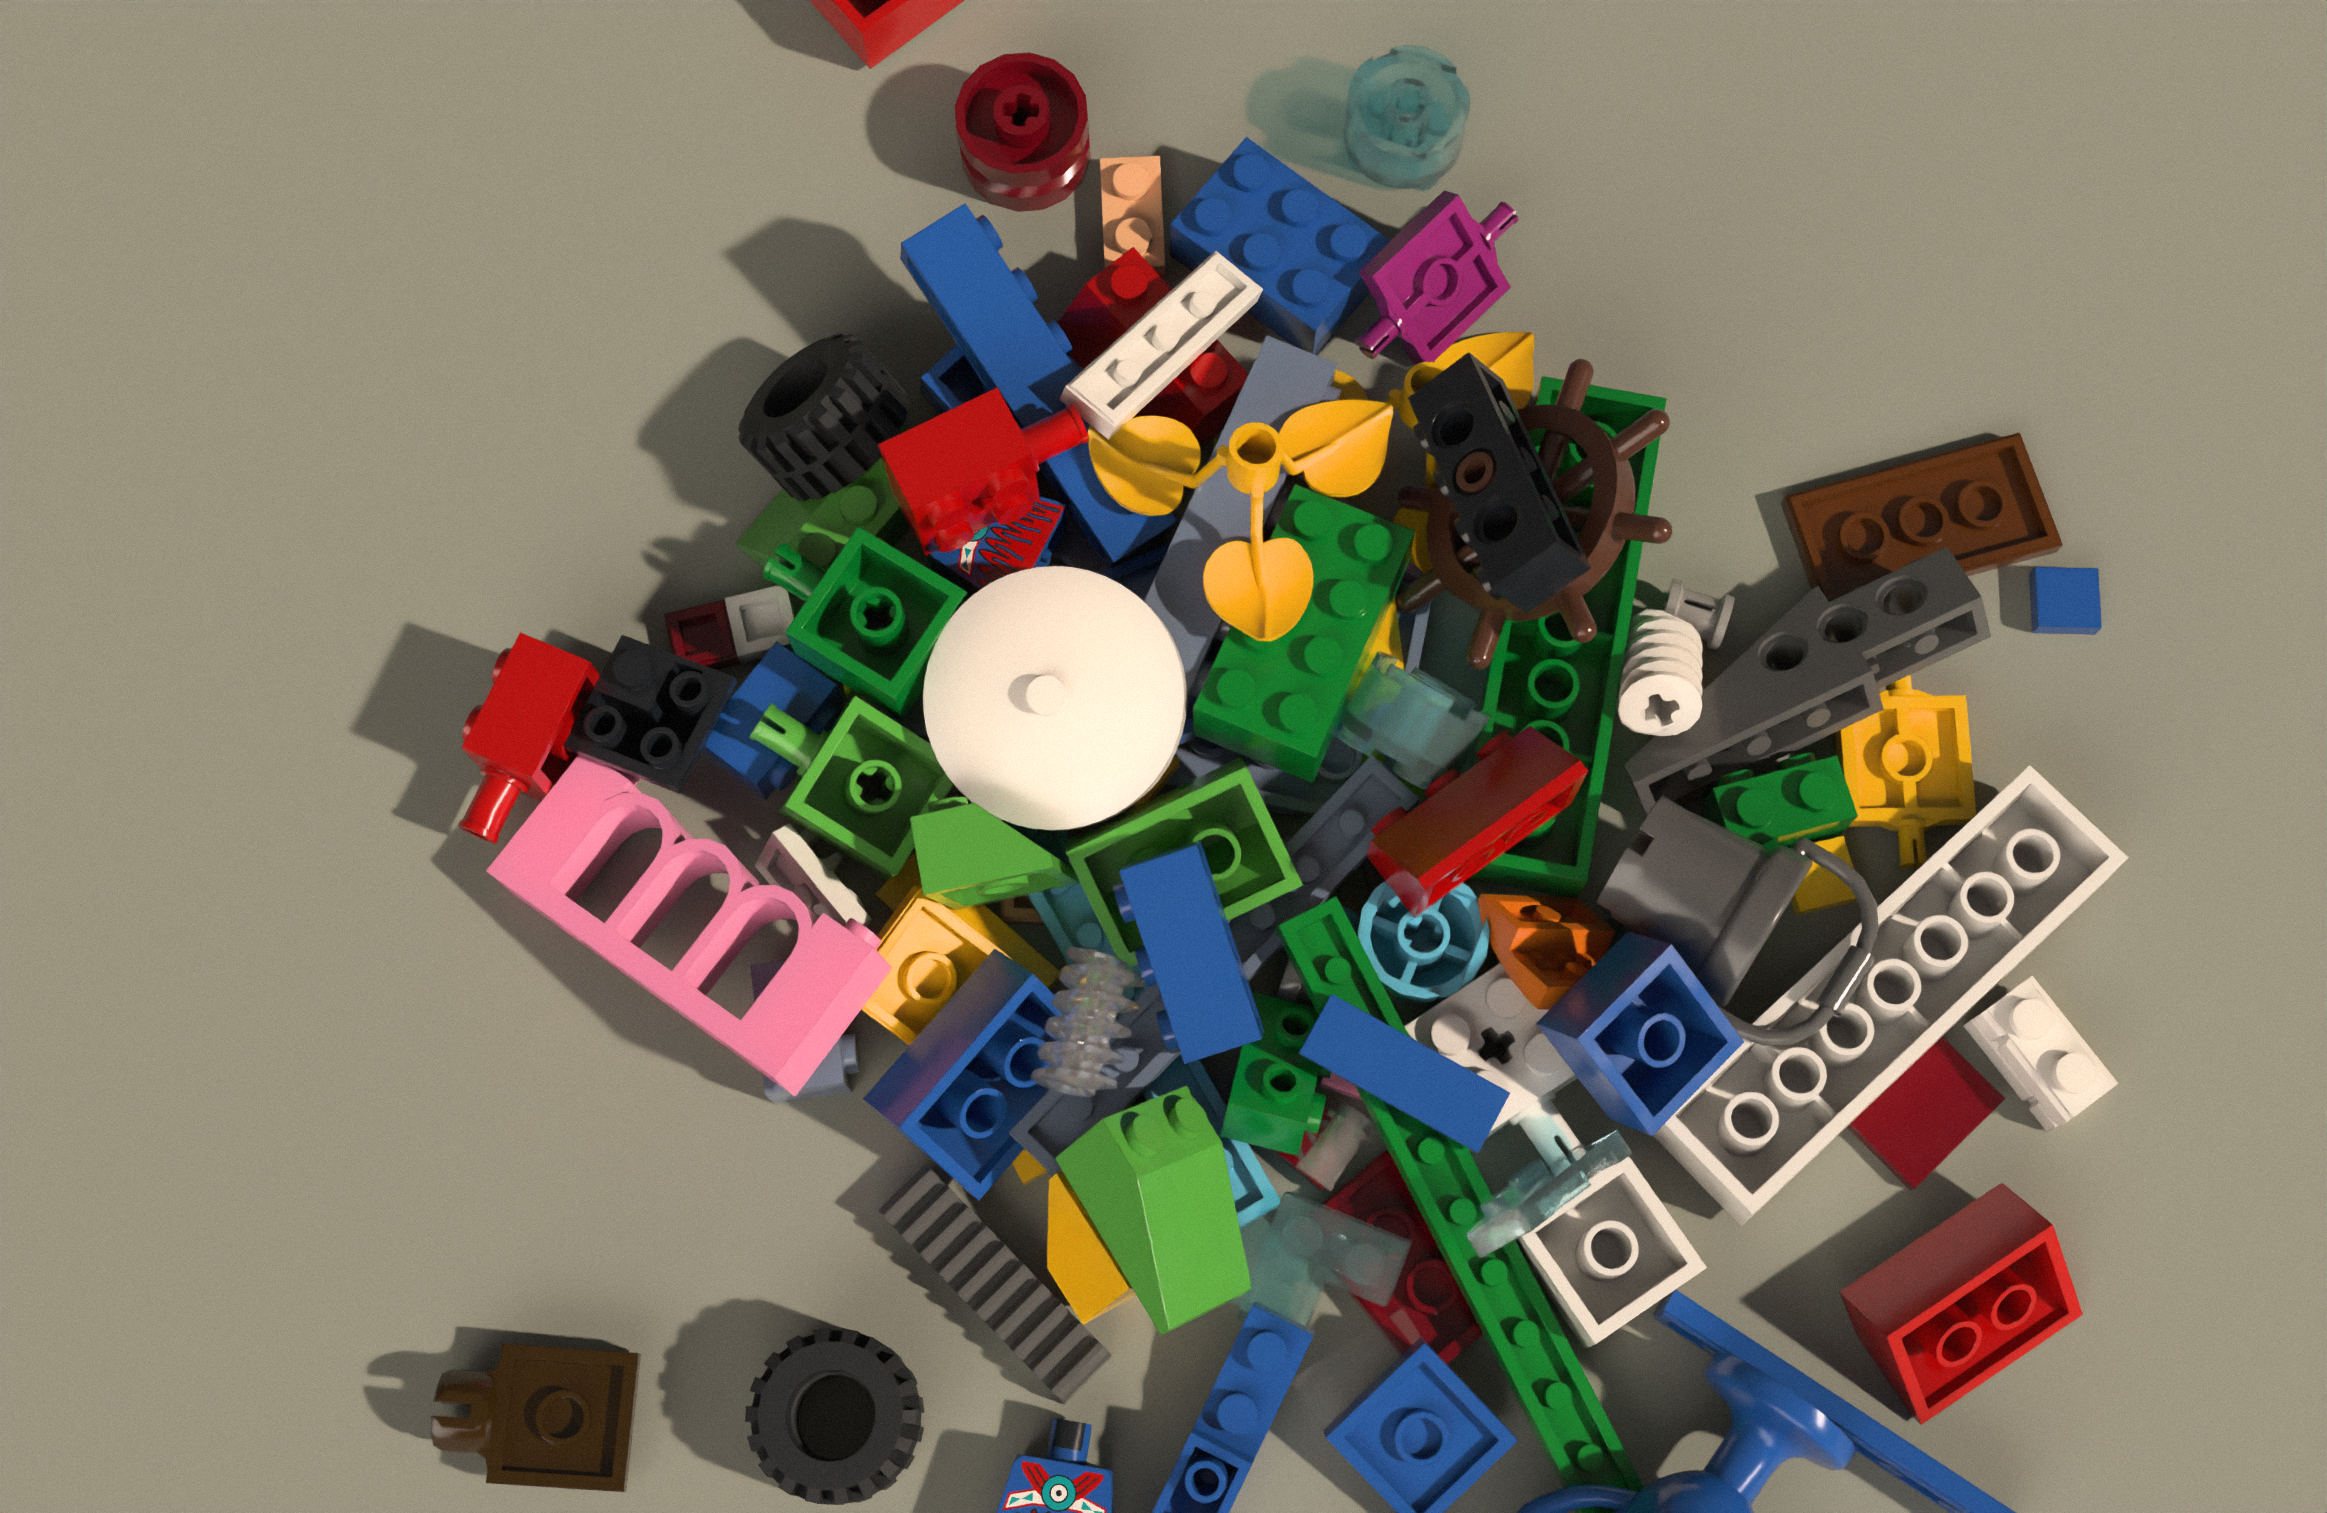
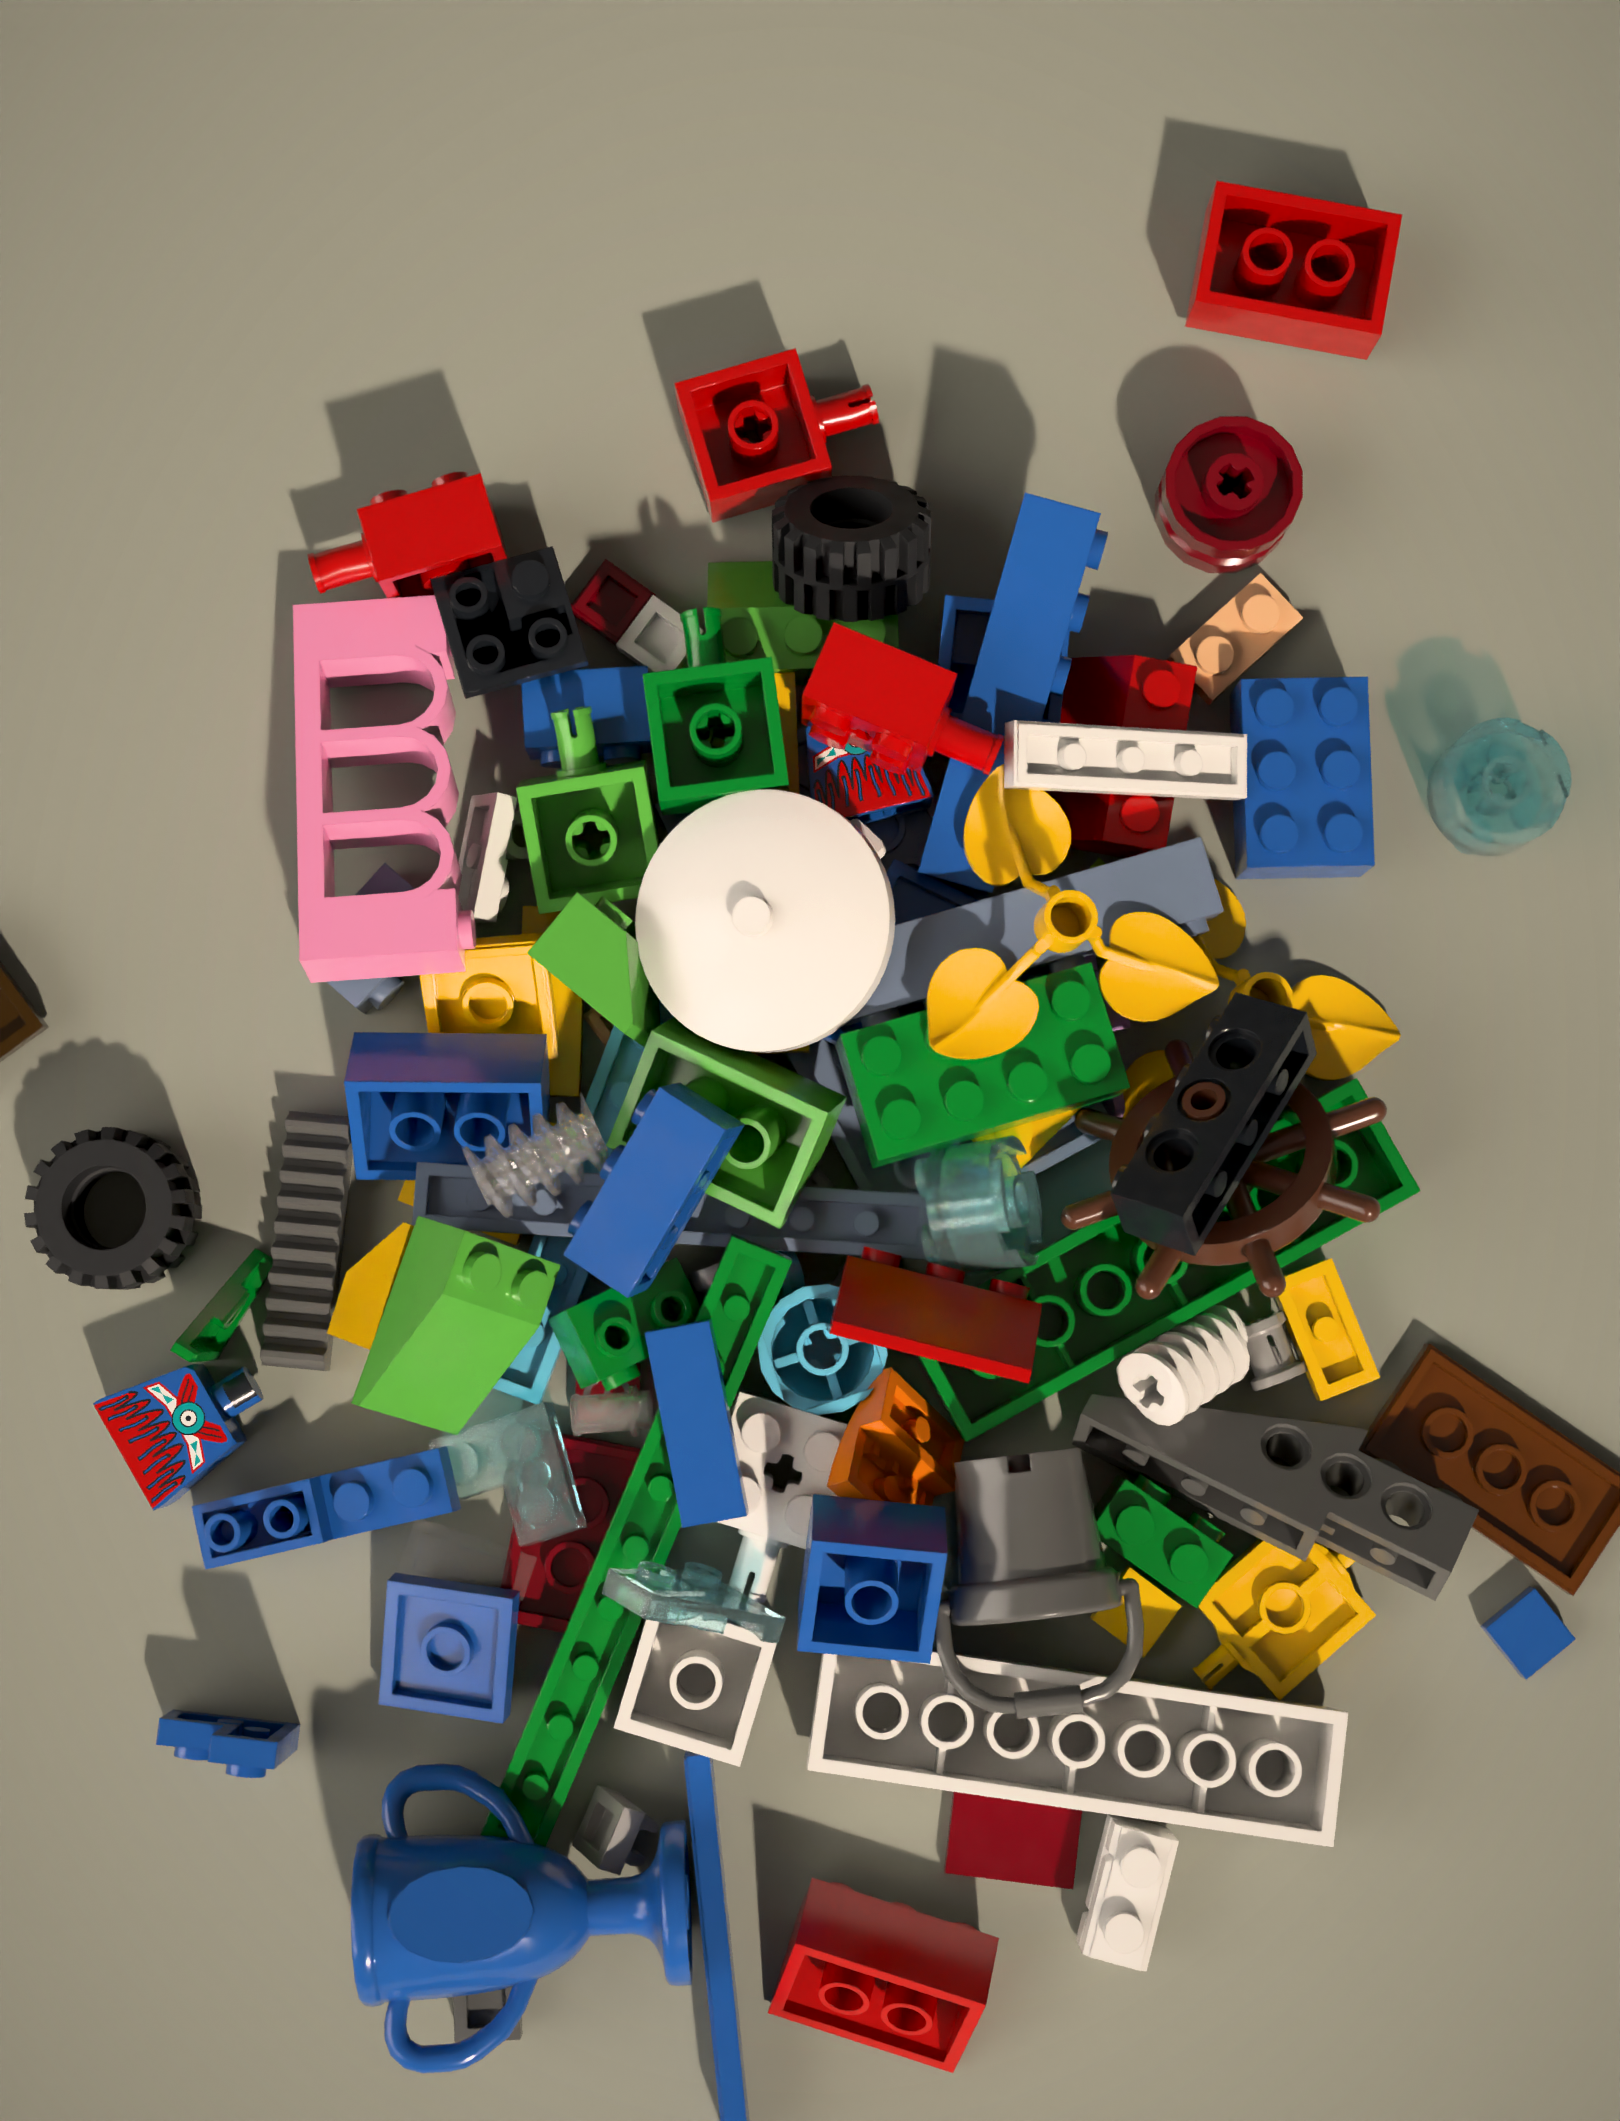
camera: 45 degrees right, 10 degrees up
(692, 400) = (776, 403): none -> red brick
(994, 1391) = (222, 1315): none -> green tile
(1435, 278) = (1376, 924): magenta plate -> none
(1674, 1426) = (610, 1831): none -> light grey tile
(1714, 562) = (1325, 1330): none -> yellow plate

